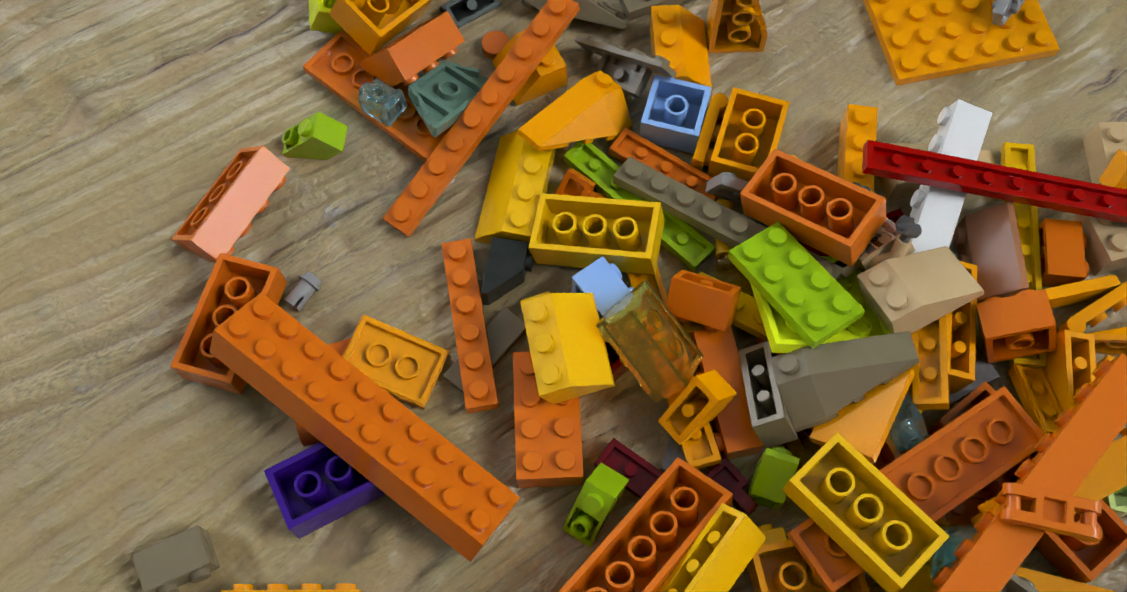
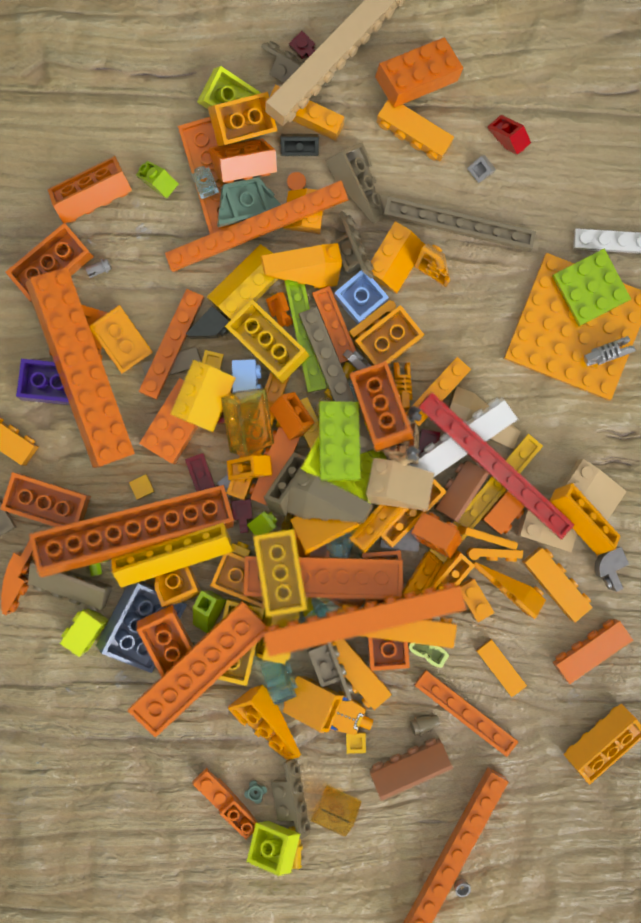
camera: 30 degrees right, 20 degrees up
(558, 547) = (141, 487): none -> yellow tile
(595, 504) = (172, 478): lime slope -> none
(1051, 511) = (358, 631): orange plate -> none

